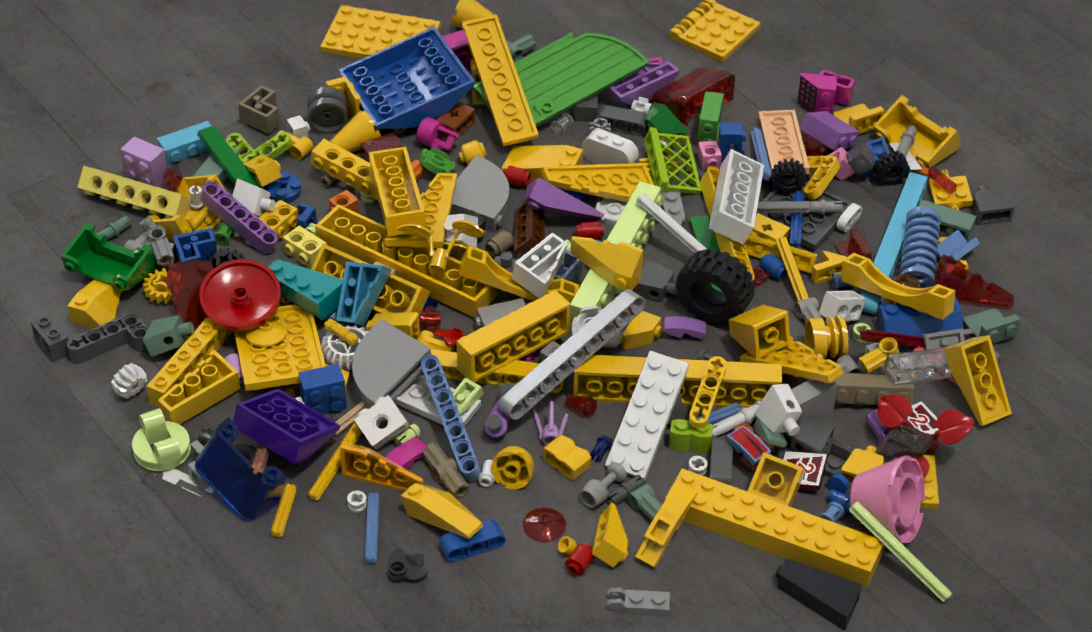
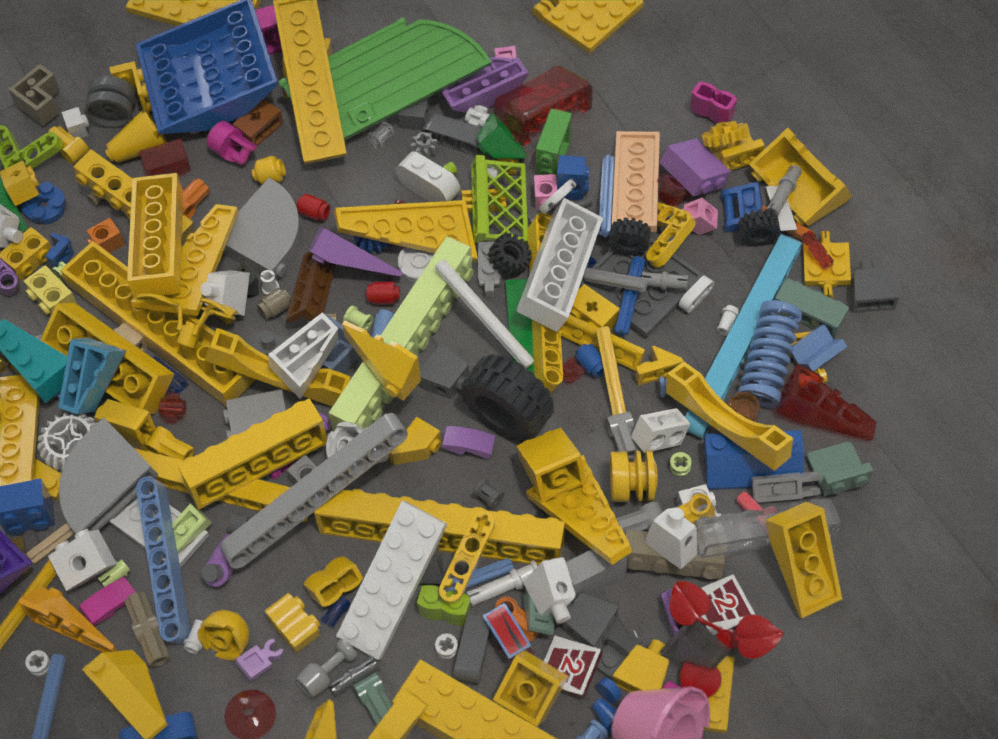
camera: 10 degrees right, 15 degrees up
(341, 332) = (60, 425): yellow axle -> none
(436, 161) = (224, 181): bright green tile -> none
(450, 336) = (191, 438): red plate -> none
(492, 227) = (269, 282): none -> white pin
(521, 46) = (347, 25): sand green piece -> none
(536, 157) = (349, 186): yellow slope -> none
(543, 486) = (257, 661): none -> lavender plate
(550, 431) = (280, 584): lavender plant -> none
(583, 404) = (325, 545): clear red cone -> none
(595, 425) = (329, 584): none -> yellow brick
(690, 198) = (502, 261): none -> black tyre
(721, 154) = (557, 196): none -> white tile
(817, 92) = (690, 112): dark pink slope -> none
(851, 105) = (725, 135): none -> yellow gear
(855, 244) = (693, 343): clear red panel -> none
(861, 159) = (723, 213): dark grey brick -> none
(871, 367) = (673, 537): none -> white torso
(878, 233) = (728, 318): none -> white pin
(901, 339) = (709, 486): dark red axle -> none

